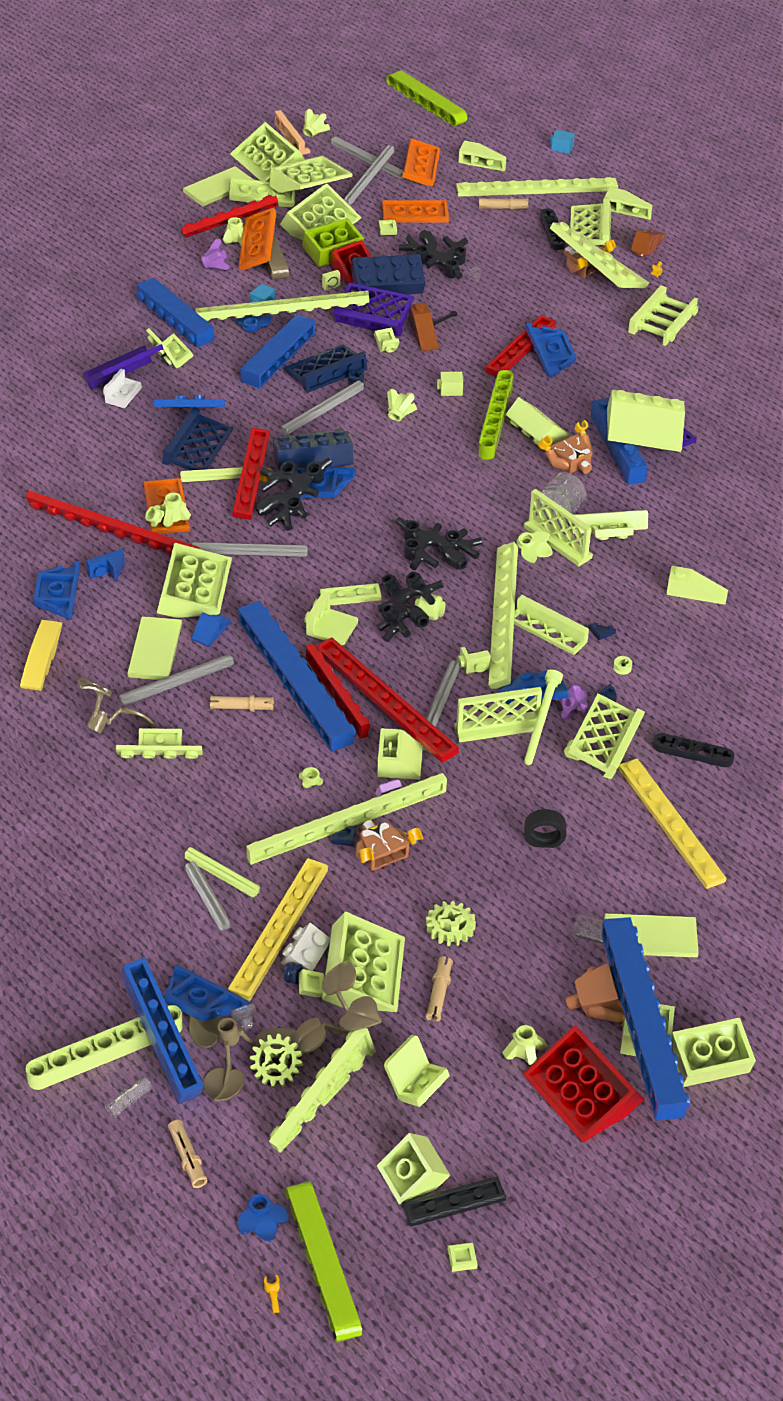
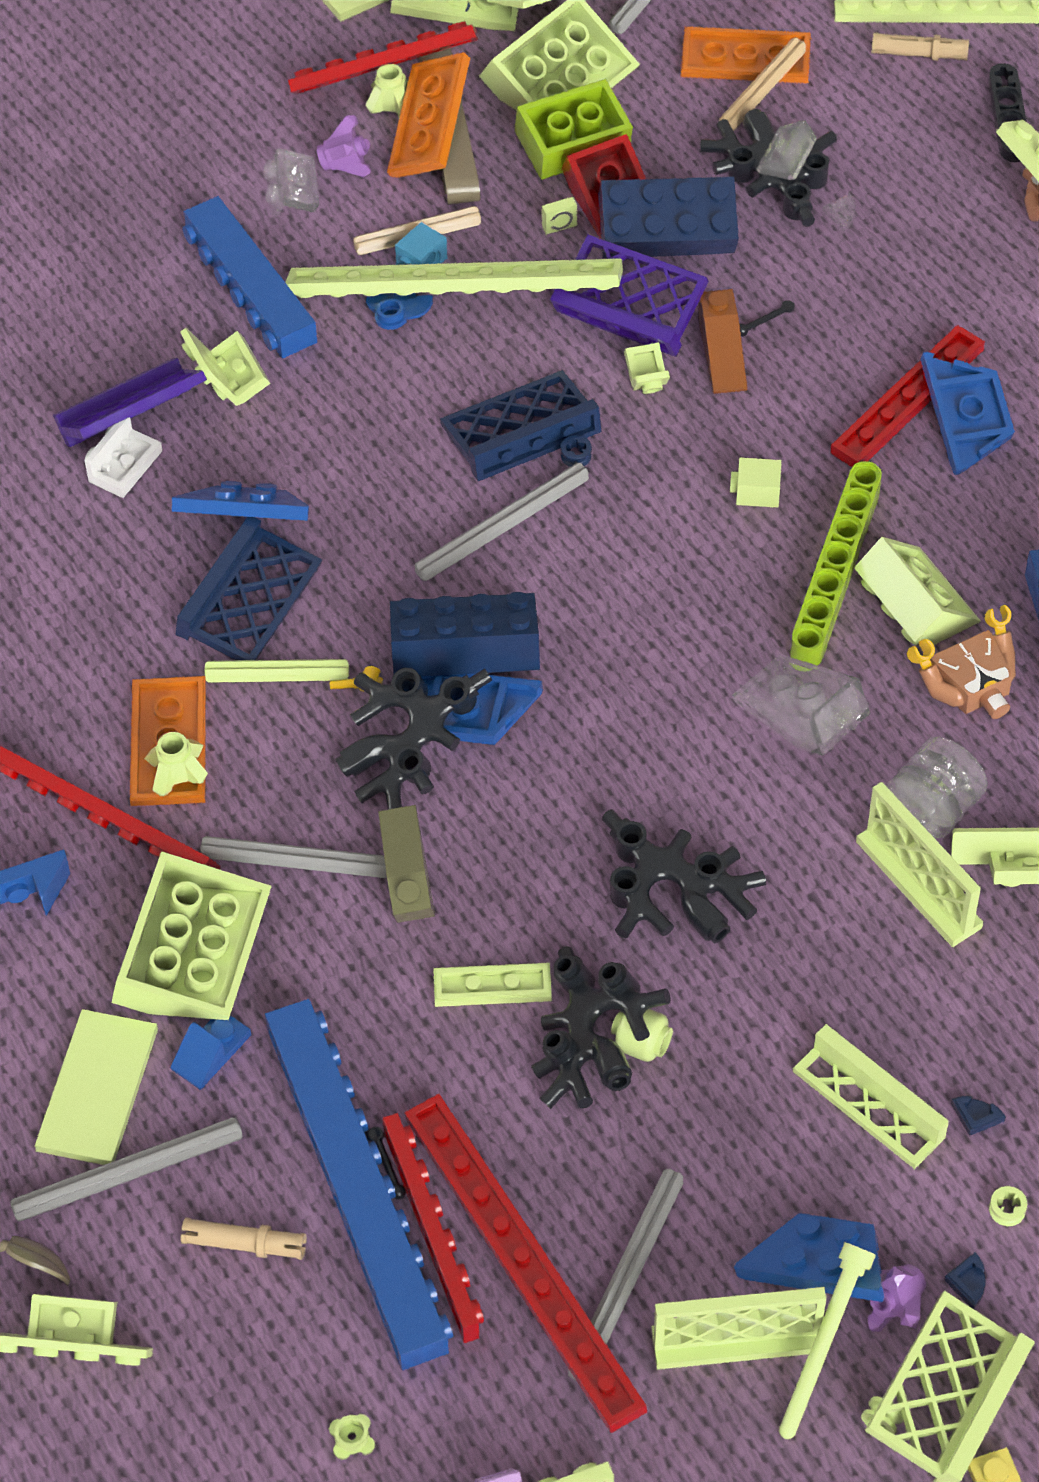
camera: 10 degrees right, 10 degrees up
(154, 515) = (137, 770): yellowish green plate -> none
(189, 271) = (291, 182): none -> clear bracket
(244, 294) = (441, 223): none -> tan axle
(251, 474) = (336, 681): red plate -> none
(277, 351) = (432, 382): blue brick -> none
(300, 545) = (406, 864): none -> olive slope
(328, 623) = (441, 1055): yellowish green bracket -> none
(387, 227) = (686, 92): yellowish green plate -> none
(399, 755) = (530, 1403): yellowish green slope -> none
(400, 404) = (649, 530): yellowish green rock -> none
(428, 219) = (764, 82): none -> tan axle
(444, 245) = (788, 151): none -> clear slope
(475, 661) = (713, 1179): yellowish green bracket -> none
(490, 471) = (805, 702): none -> clear slope
(503, 616) = (784, 1066): yellowish green plate -> none
(536, 547) = (875, 895): yellowish green plate -> none

